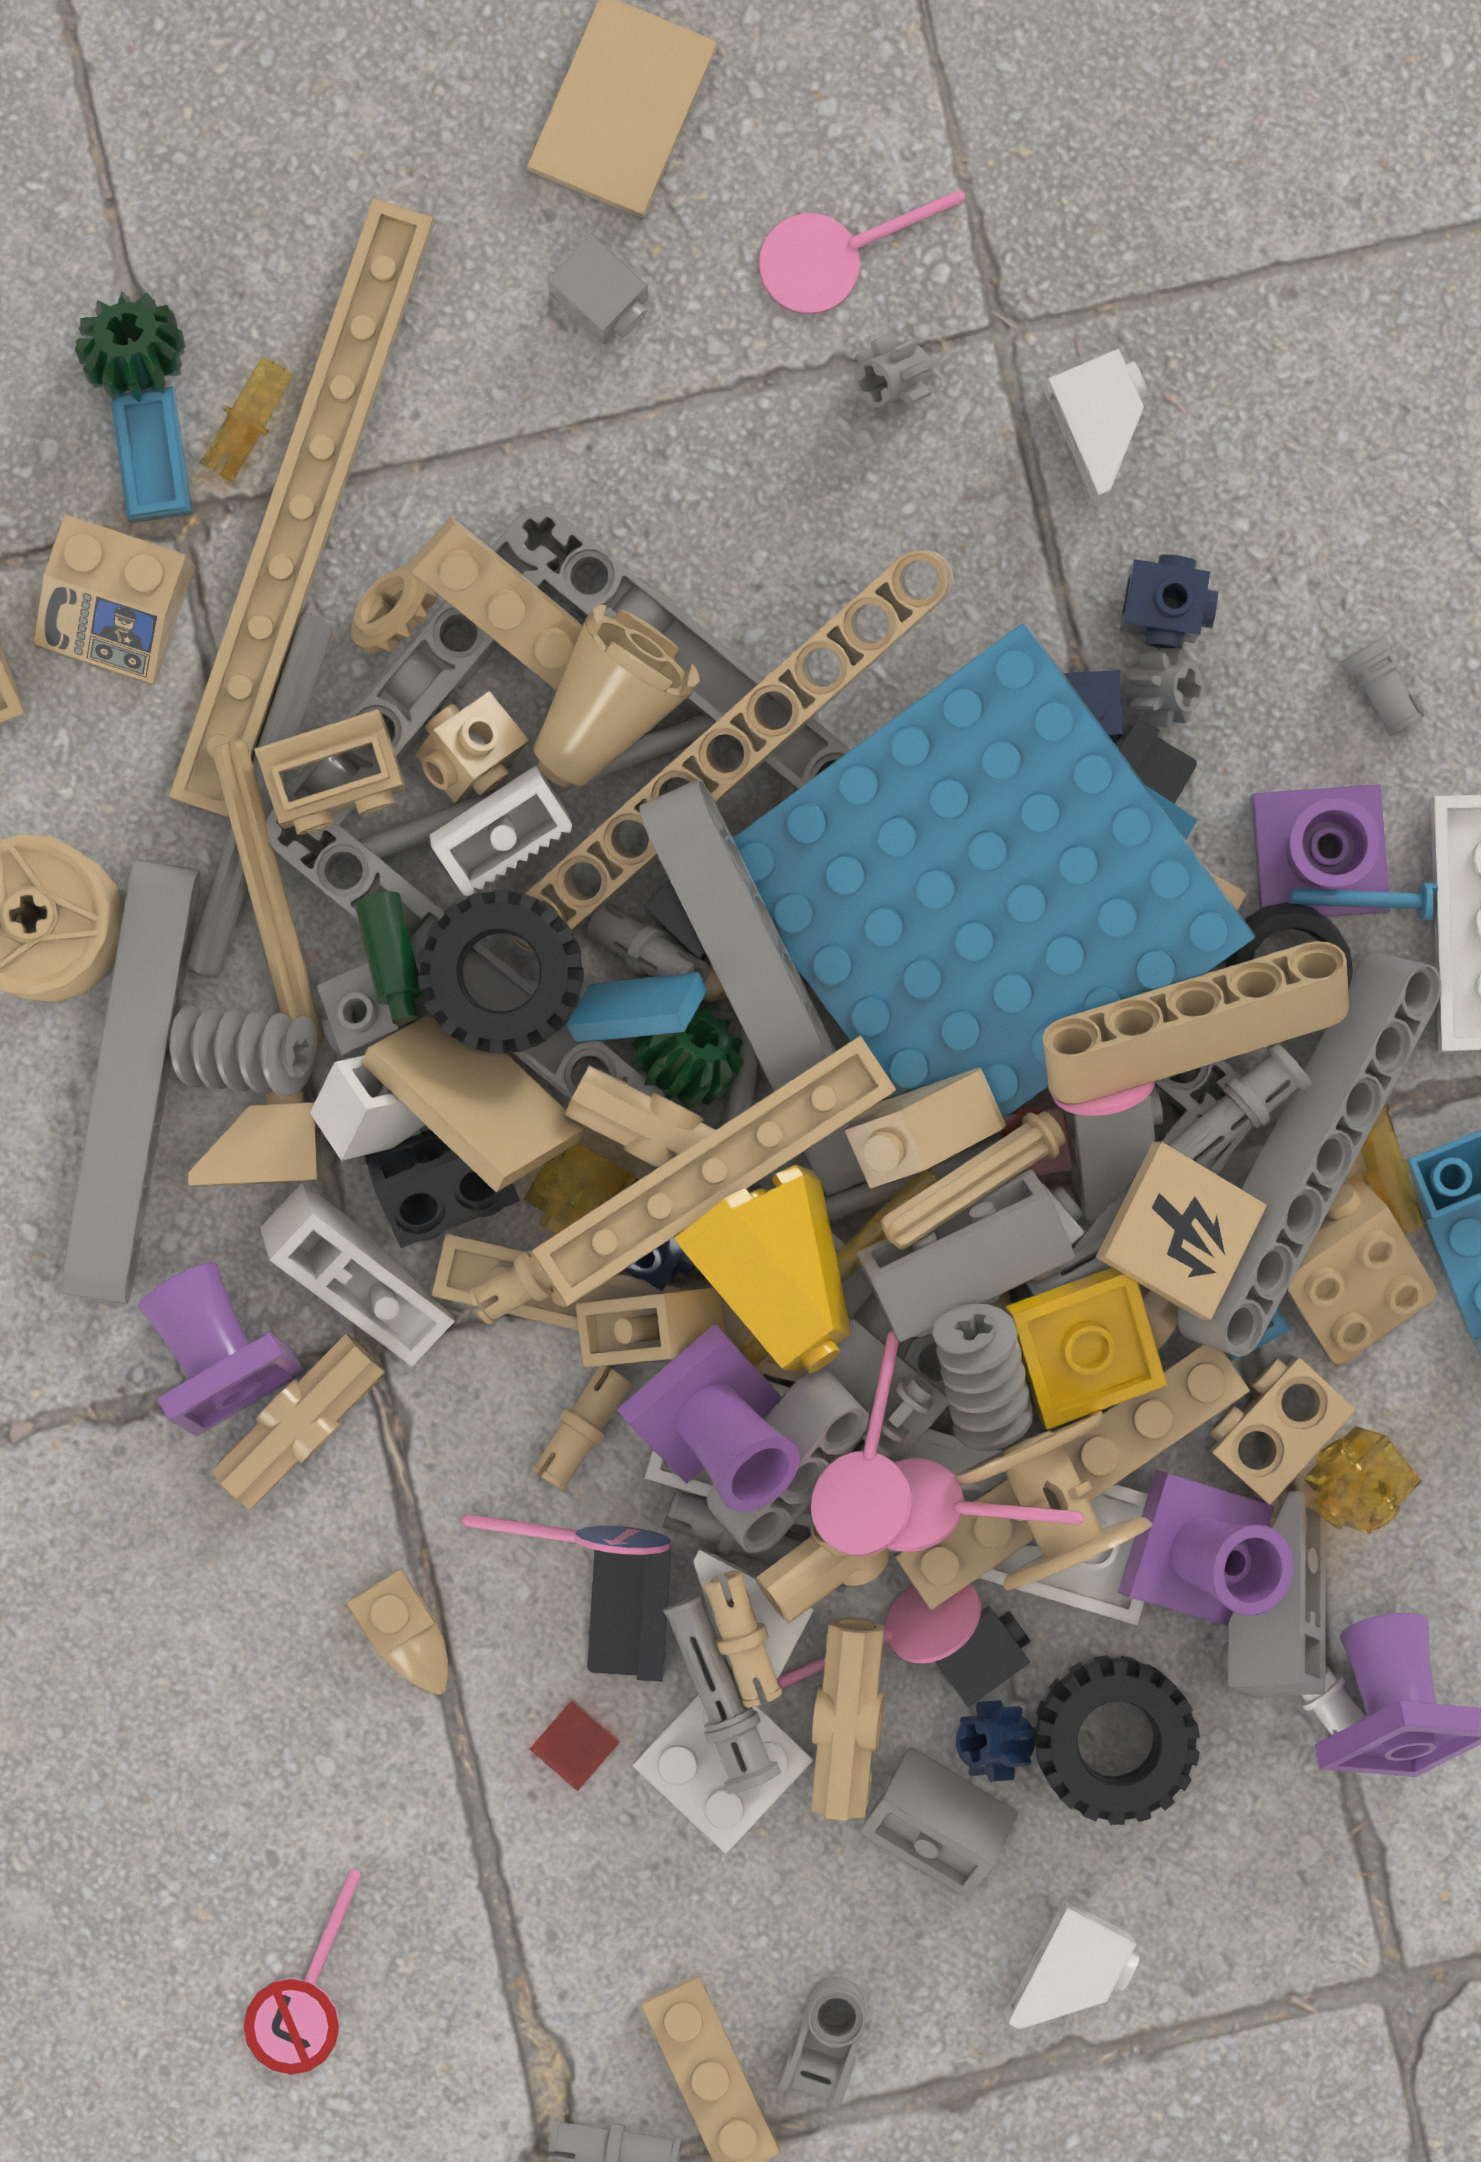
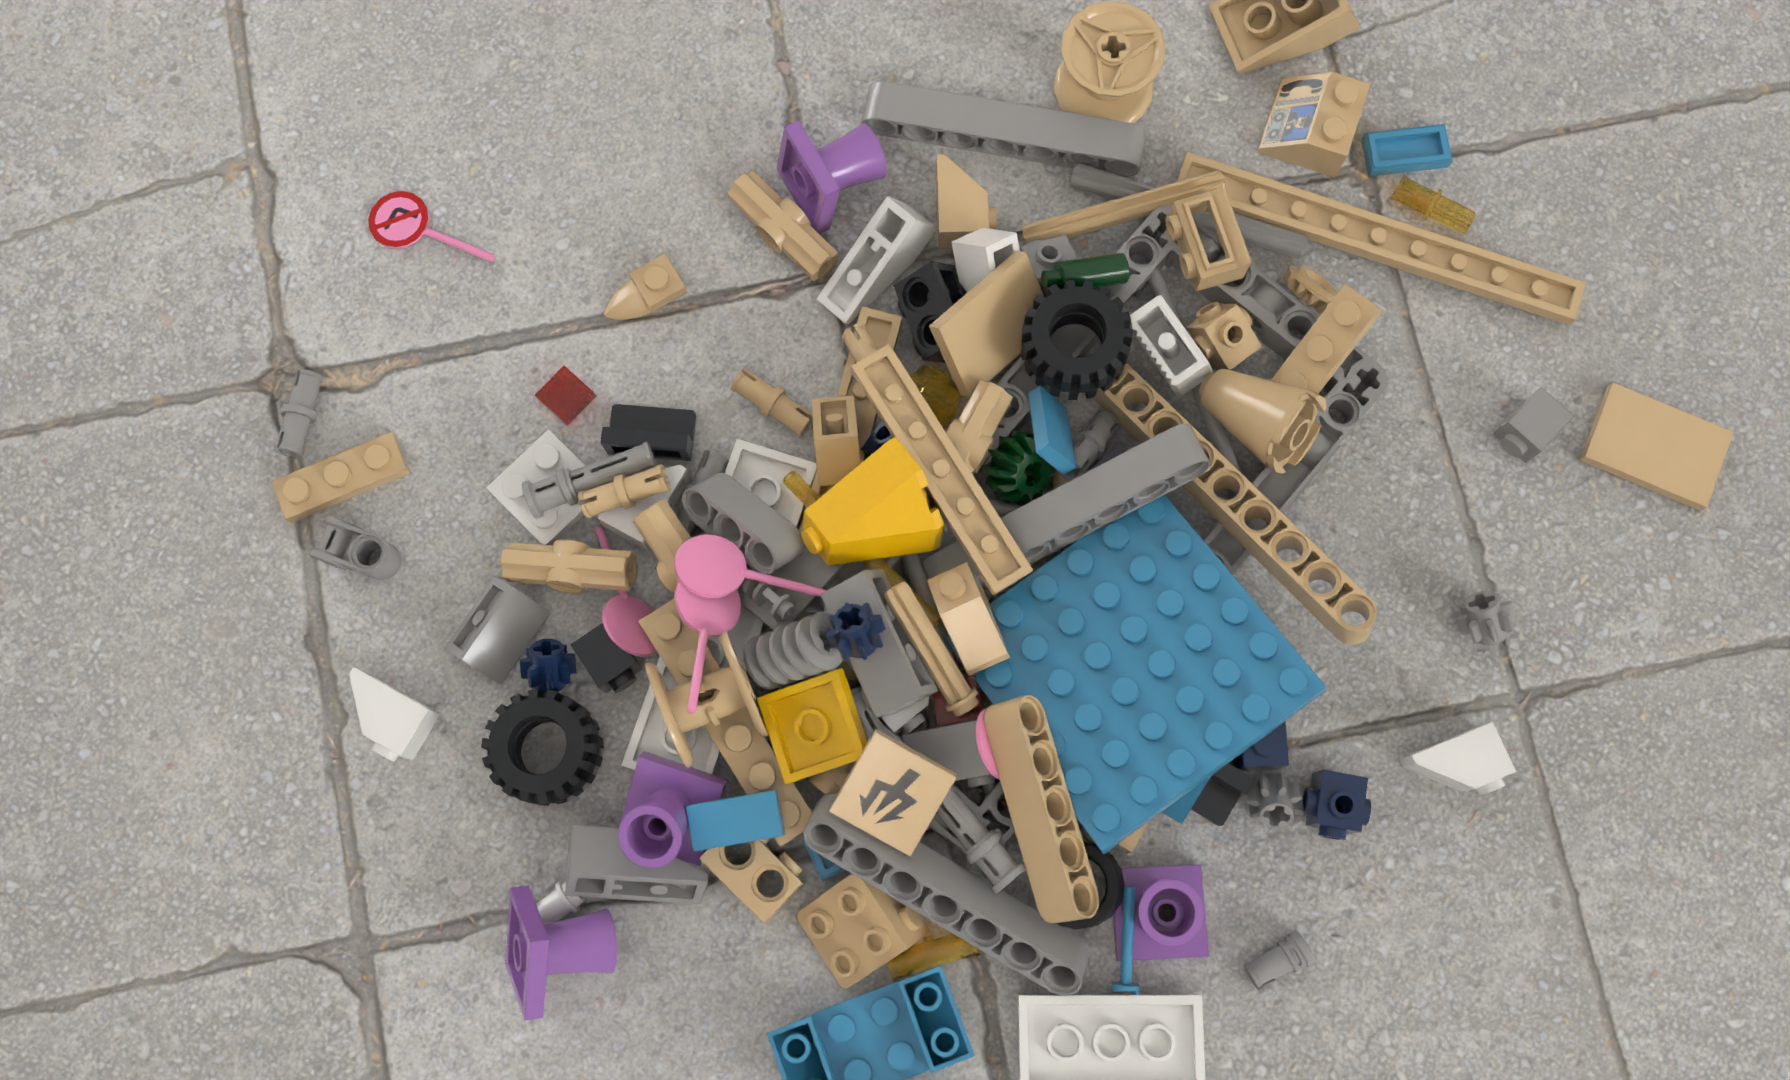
camera: 90 degrees right, 10 degrees down
(130, 346) = (1478, 132): dark green gear -> none
(243, 1050) = (1023, 190): light grey piece -> none
(602, 1538) = (696, 411): bright pink piece -> none
(709, 1416) = (772, 468): medium lavender plant -> none
(815, 262) = (1560, 572): bright pink piece -> none
(948, 1290) = (855, 631): none -> dark blue gear
(1218, 1453) = (735, 820): none -> dark azure tile
(1361, 1481) = (713, 926): clear yellow brick -> none

